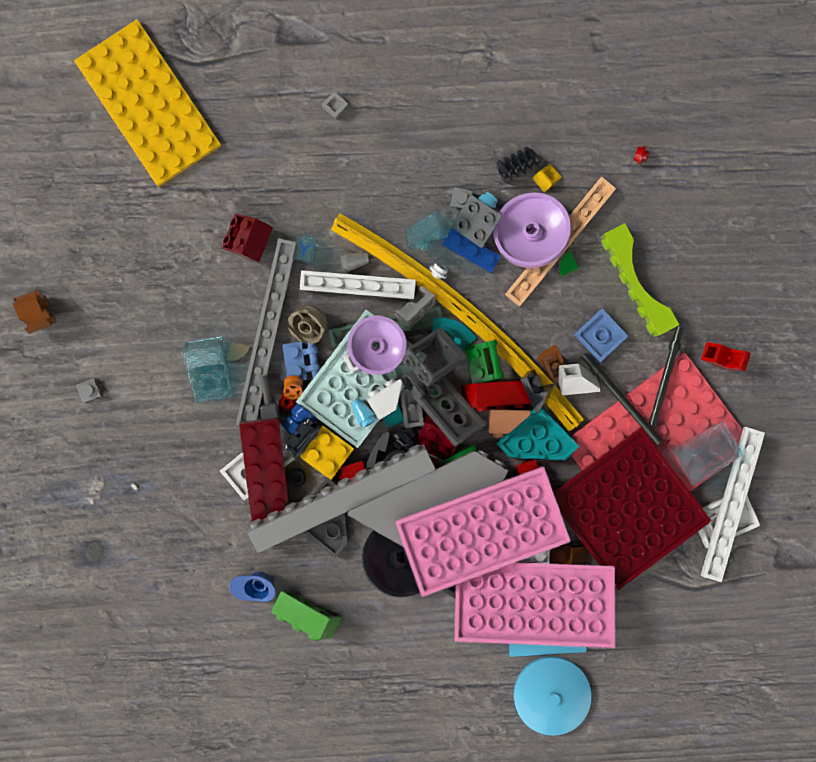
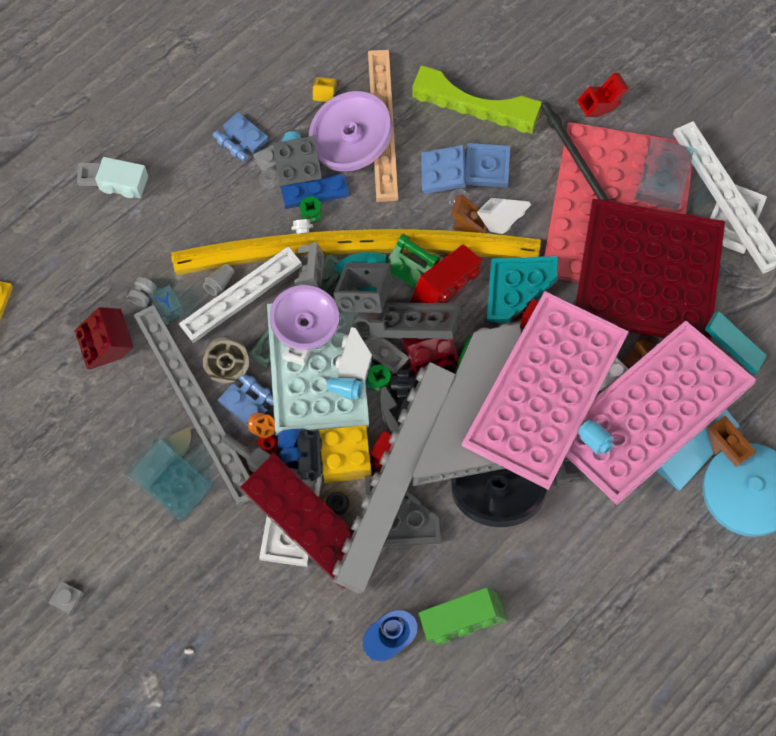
camera: 40 degrees left, 20 degrees down
(301, 224) = (141, 292): none -> light grey wheel
(352, 129) = (121, 177): none -> light aqua brick
(394, 422) = (378, 382): none -> green wheel
(427, 232) = (263, 199): clear light blue slope -> none
(456, 267) = (313, 214): none -> green wheel
(464, 165) = (245, 133): none -> medium blue plate
(480, 592) = (596, 437): none -> medium azure brick
(504, 421) = (474, 291): nougat slope -> none
(517, 163) = (289, 95): black piece -> none
(536, 392) = (483, 246): black slope -> none
(565, 663) = (730, 441): none -> dark orange slope
(567, 264) = (406, 137): green tile -> none
(568, 312) = (443, 169): none -> medium blue plate
(596, 369) = (512, 193): pearl dark grey bar -> none
(635, 603) = (735, 342): none -> teal tile
(641, 154) = (384, 12): red plate -> none

